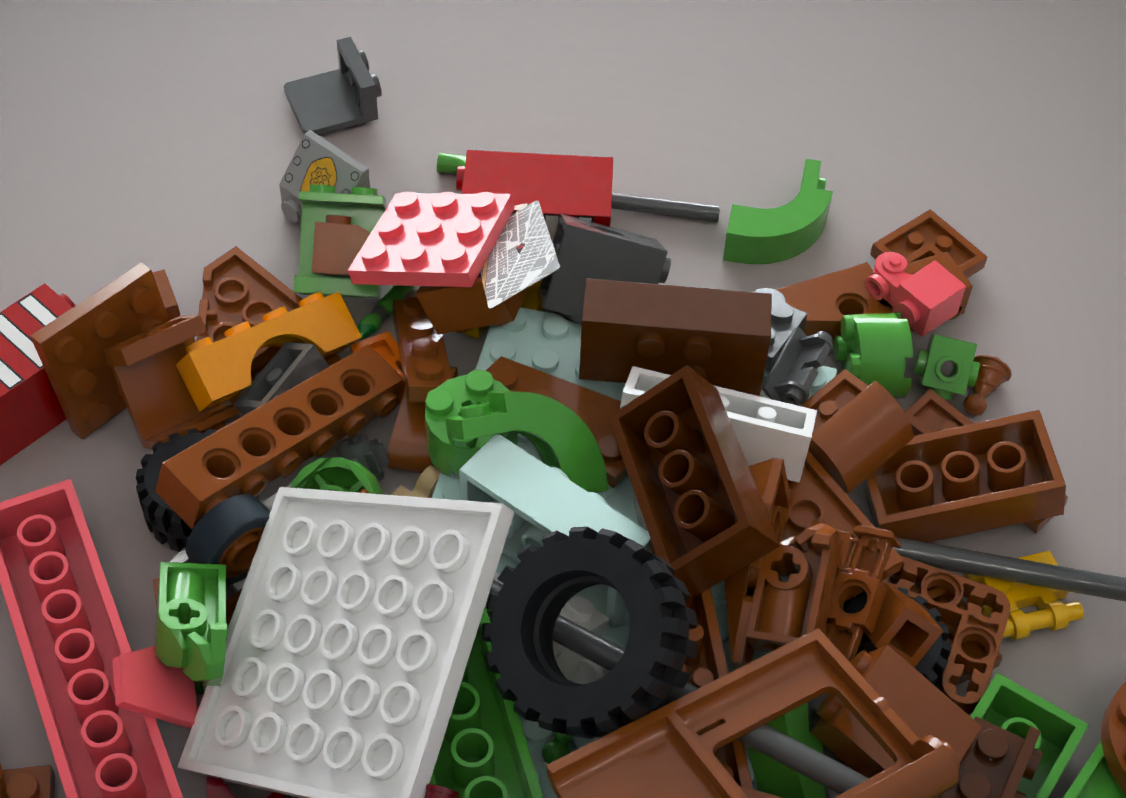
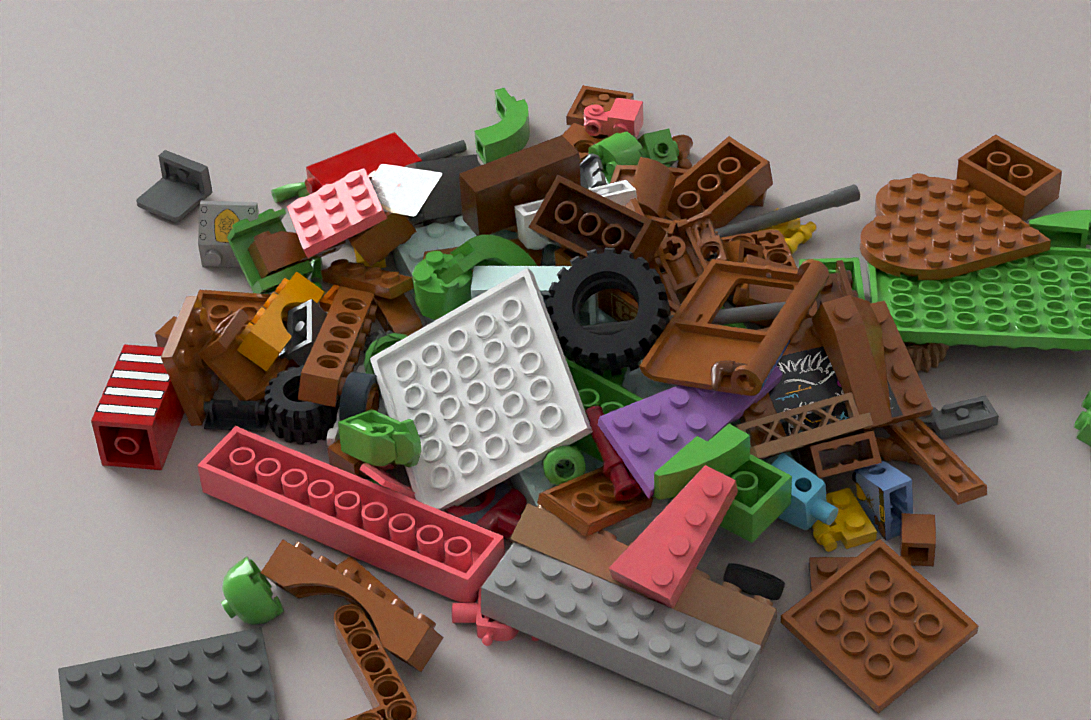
camera: 30 degrees left, 10 degrees down
(112, 450) = (247, 415): none -> black hinge

